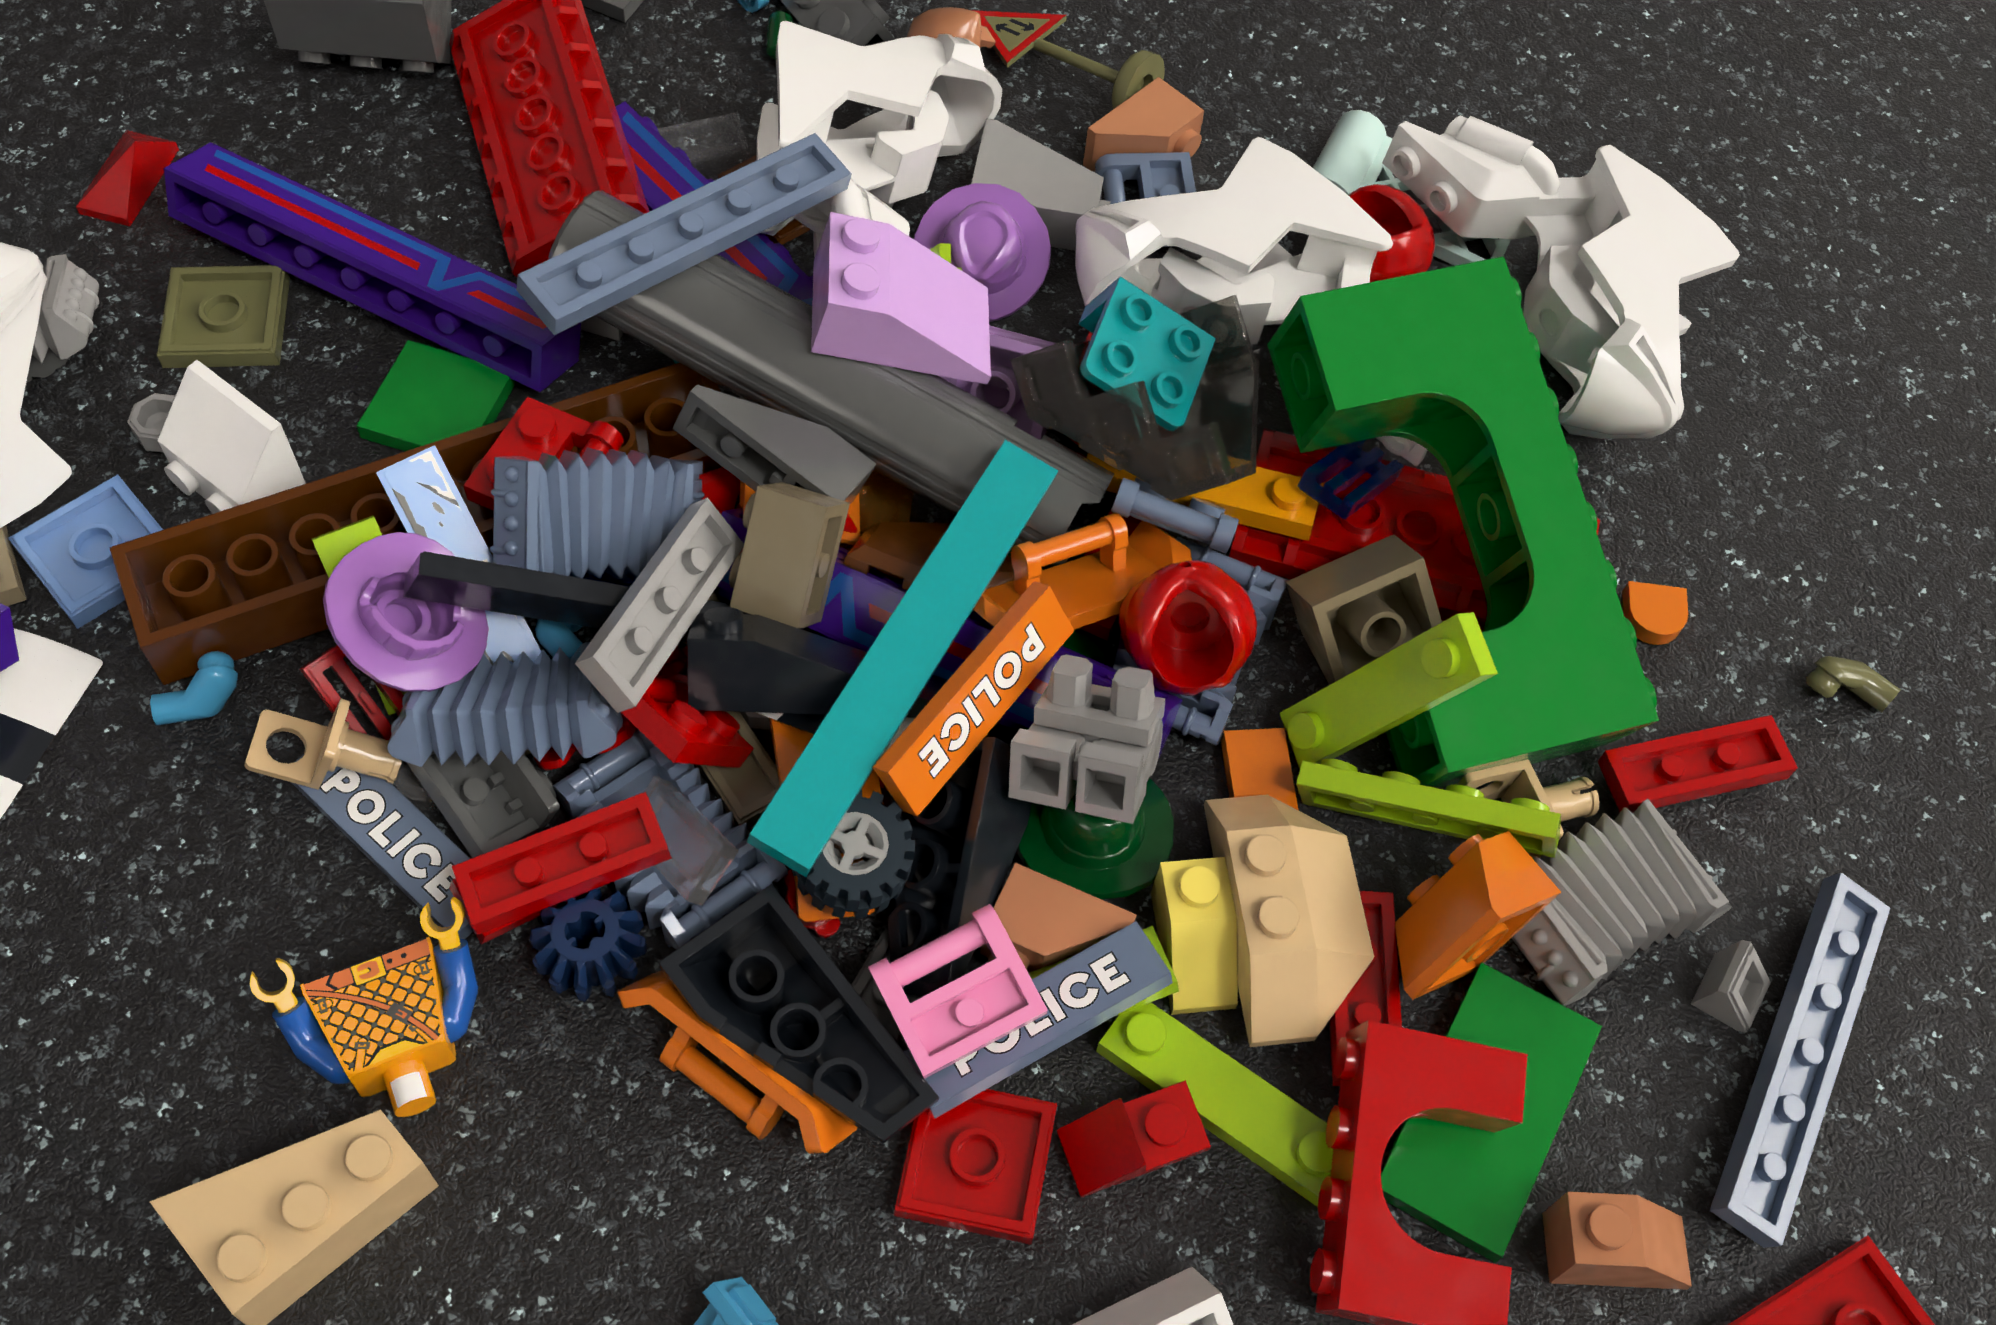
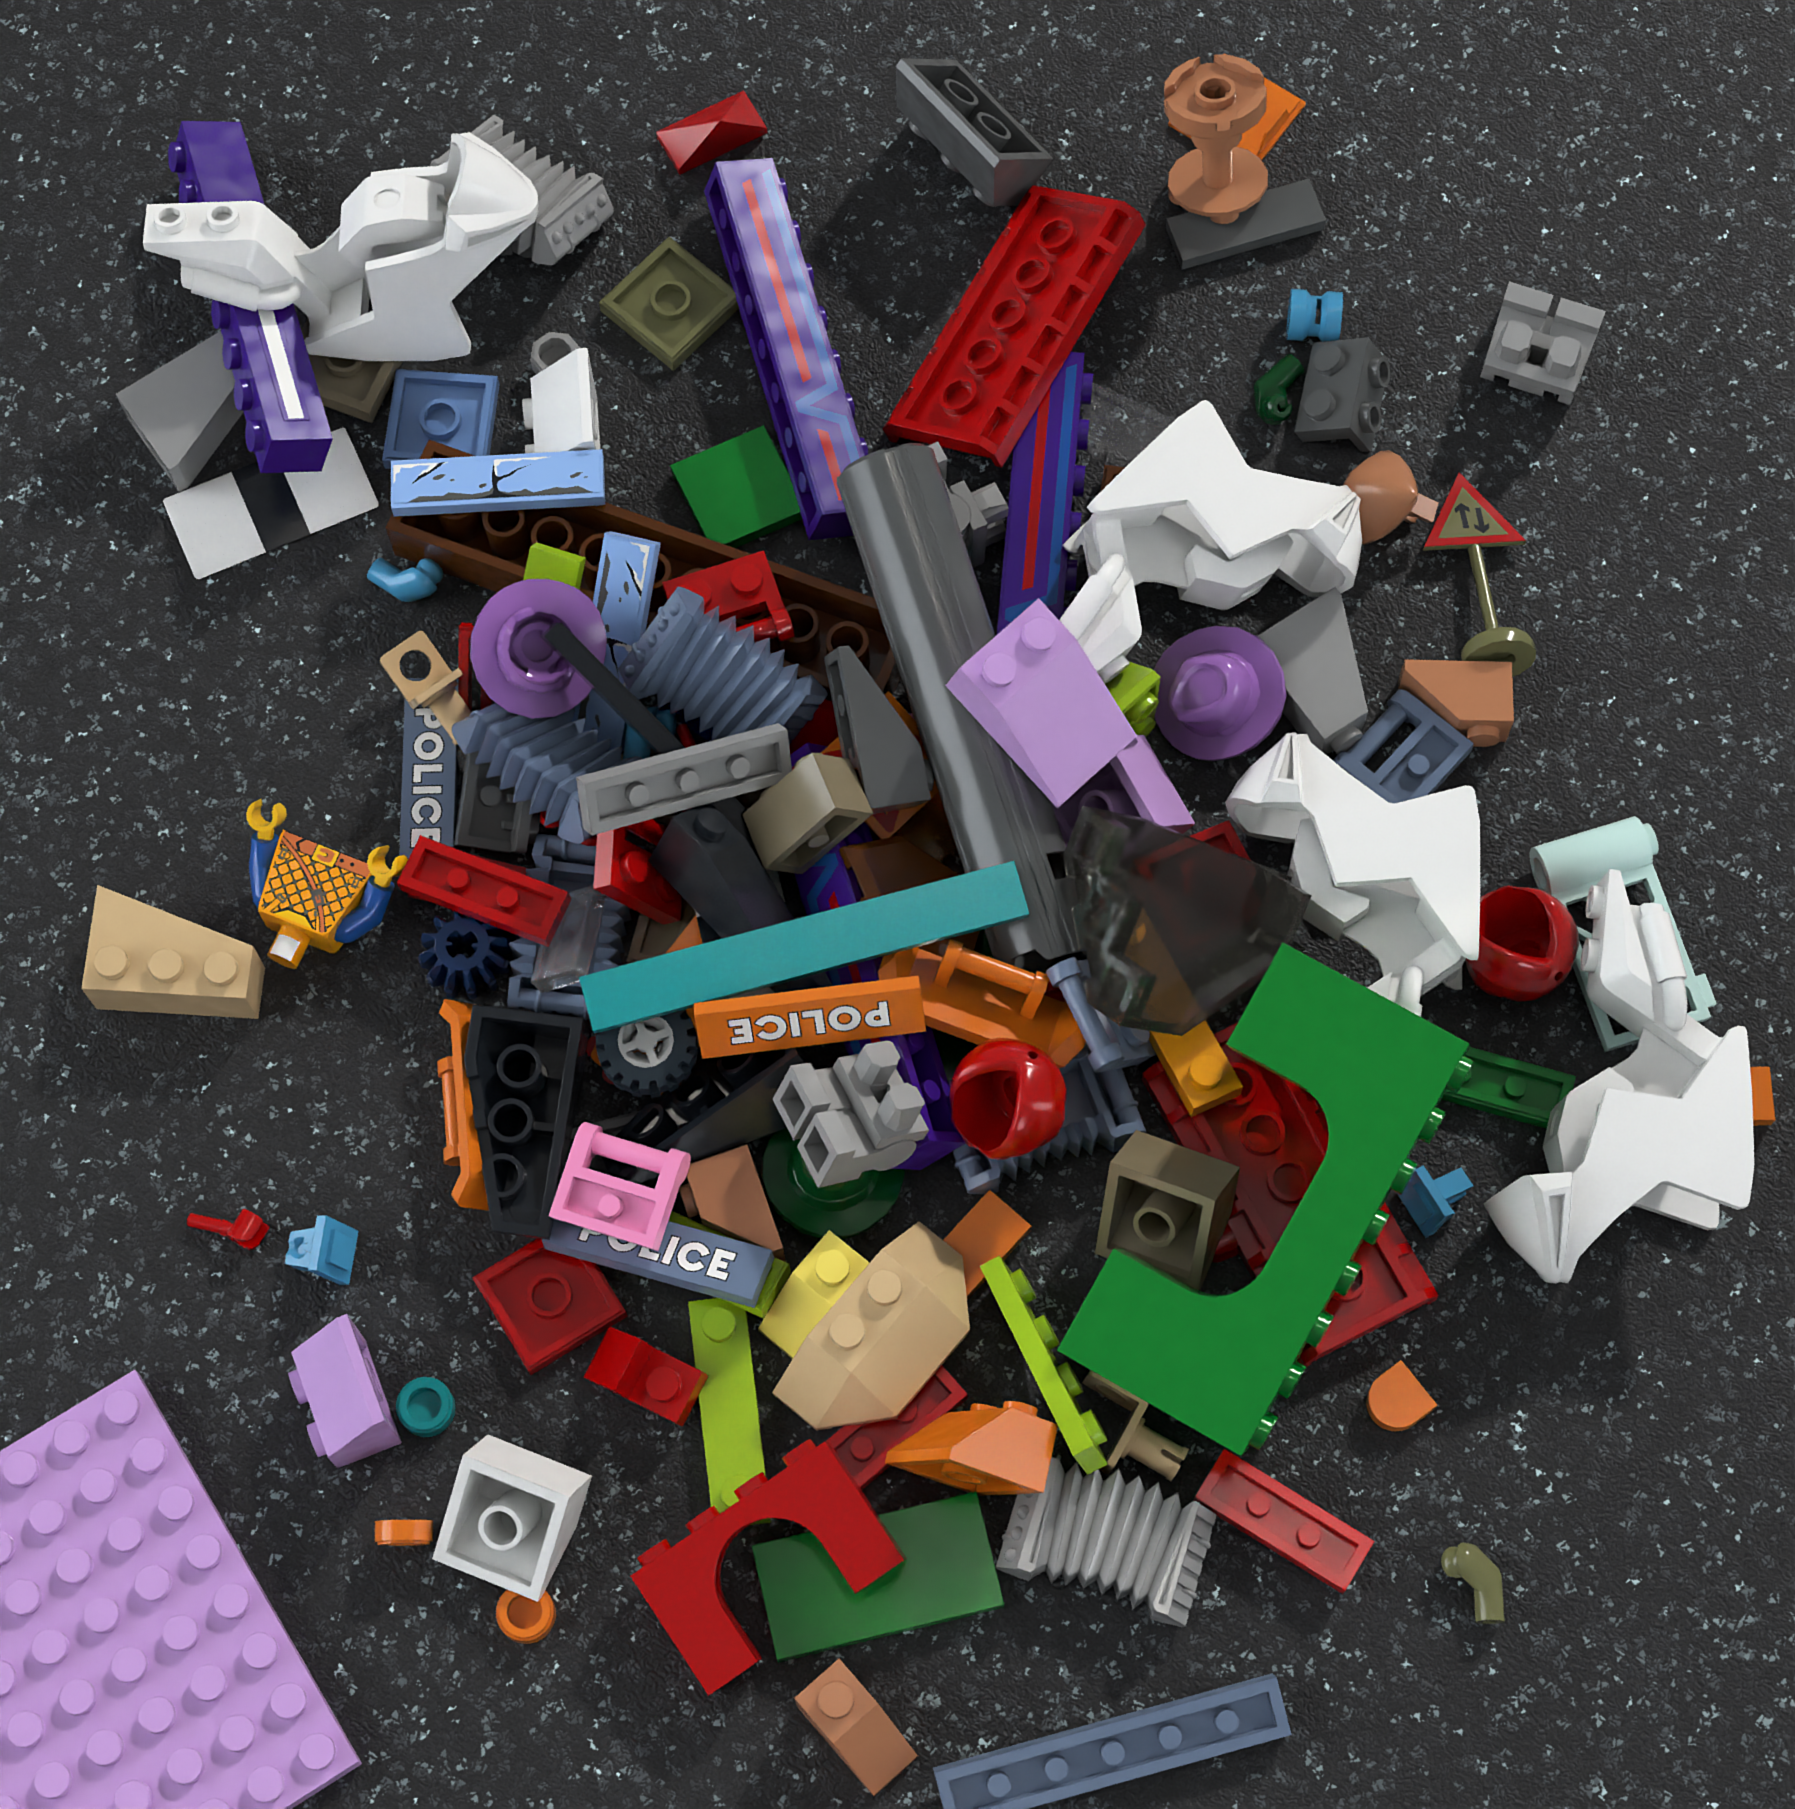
camera: 55 degrees right, 10 degrees up
(216, 529) = (497, 483): none -> light blue tile
(681, 233) = (938, 530): sand blue plate -> none
(1145, 341) = (1185, 883): teal bracket -> none
(1363, 462) = (1304, 1101): clear blue tile -> none
(1390, 690) = (1078, 1262): lime plate -> none
(1733, 986) = (1125, 1674): light grey slope -> none

